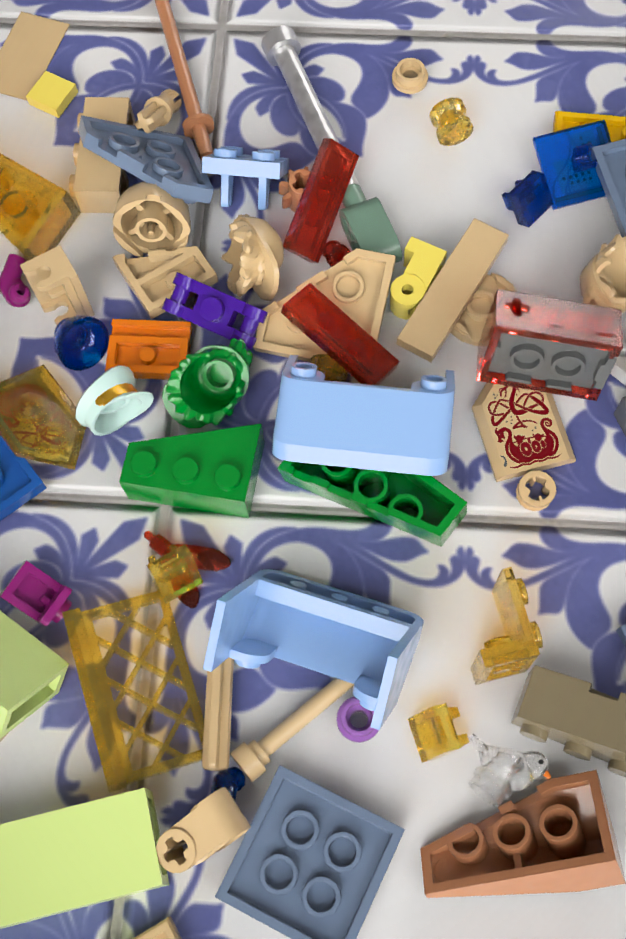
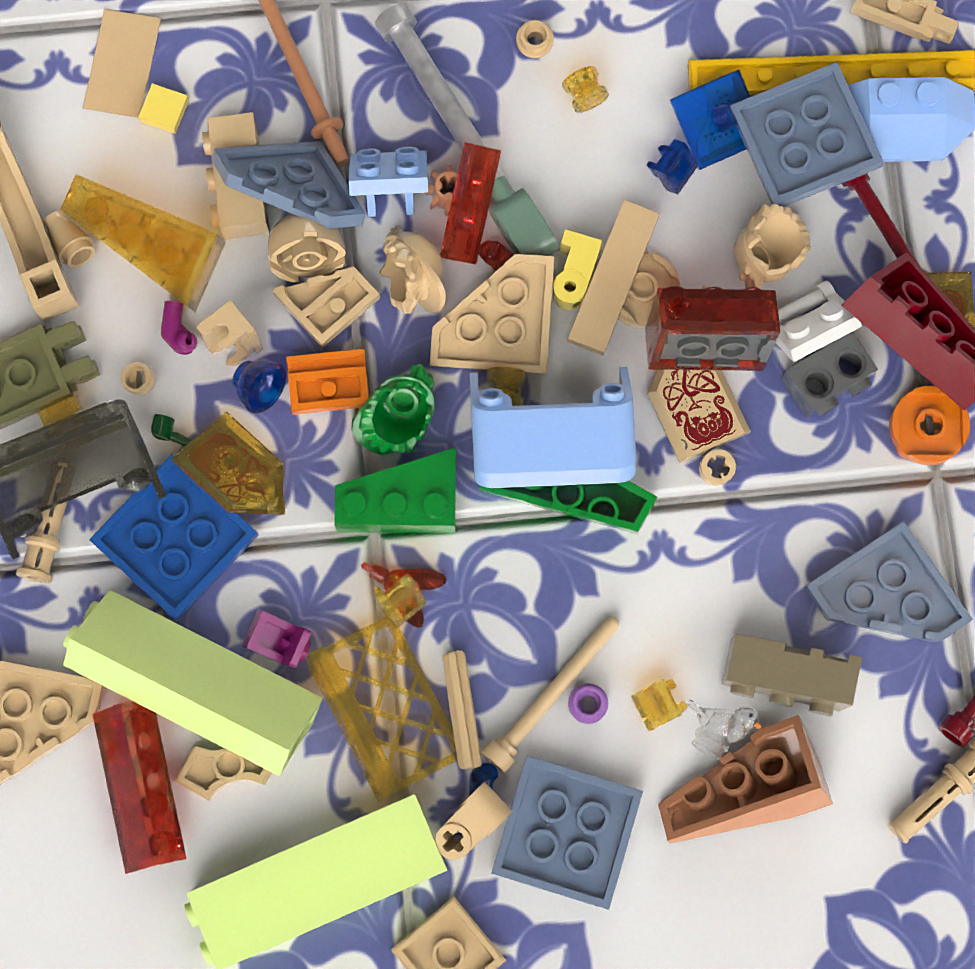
camera: 15 degrees left, 10 degrees up
(112, 401) = (307, 444): light aqua piece -> none
(158, 111) = (284, 120): tan axle -> none
(214, 310) = (386, 335): dark purple plate -> none
(320, 631) = (544, 632): light blue windscreen -> none
(339, 336) = (514, 347): clear red tile -> none
(522, 639) = (723, 611): clear yellow bracket -> none

